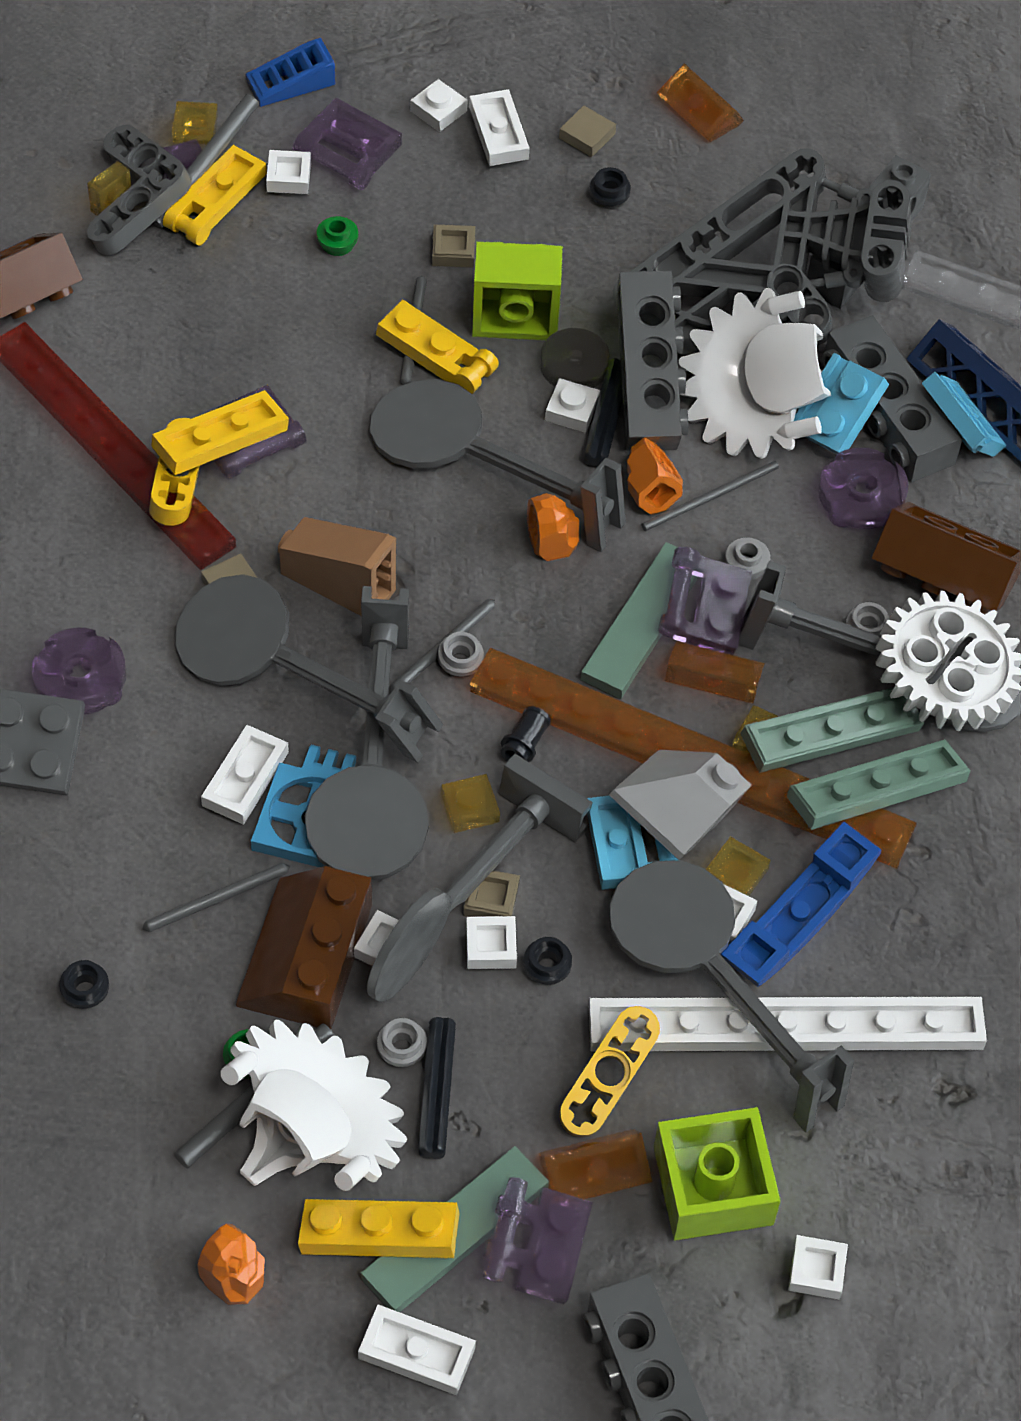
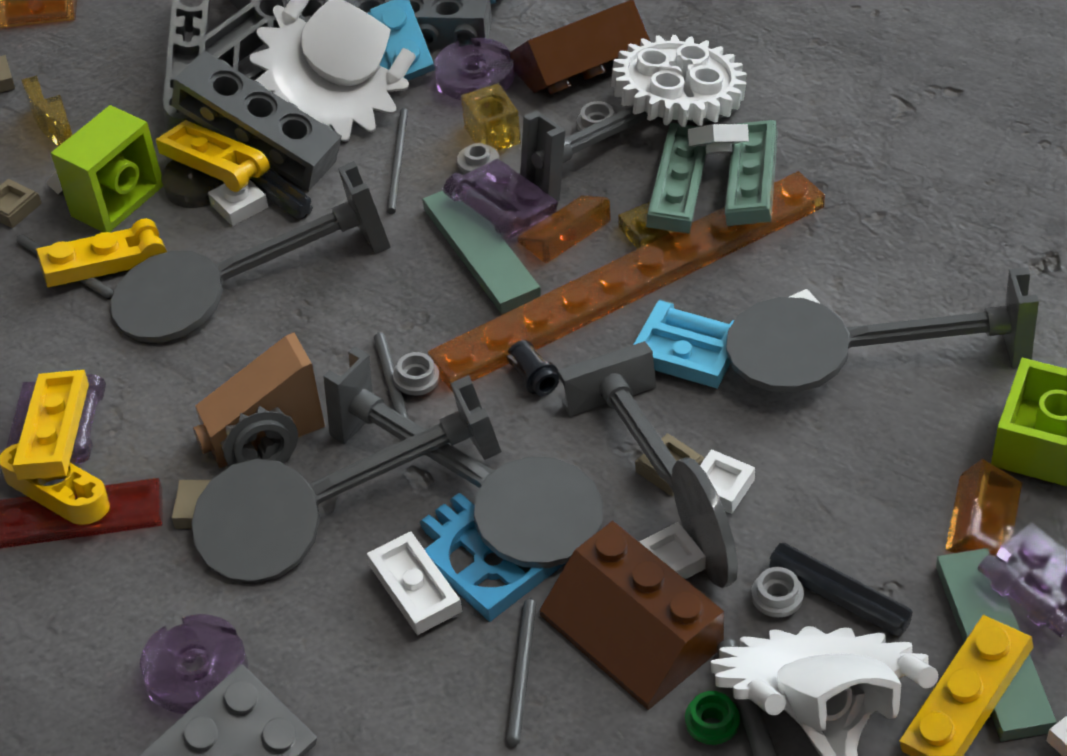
camera: 50 degrees left, 10 degrees down
(290, 576) = (276, 446): none -> dark grey gear
(470, 803) = (567, 437): clear yellow plate -> none
(551, 949) = (764, 451): black plate -> none
(552, 527) = (346, 257): orange rock -> none
(565, 202) = (47, 112): none -> clear yellow slope
(591, 353) = (213, 154): none -> yellow plate
(610, 187) = (59, 82): black plate -> none
(640, 1047) = (909, 475): yellow beam -> none
(652, 477) = (371, 168): orange rock -> none
(681, 796) = (682, 280): light grey slope -> none
(739, 866) = (762, 286): clear yellow plate -> none
(803, 907) = (822, 261): blue slope -> none
(805, 524) = (491, 117): none -> clear yellow brick
(811, 1021) = (907, 364): white plate -> none
(894, 732) = (718, 137): none -> white plate

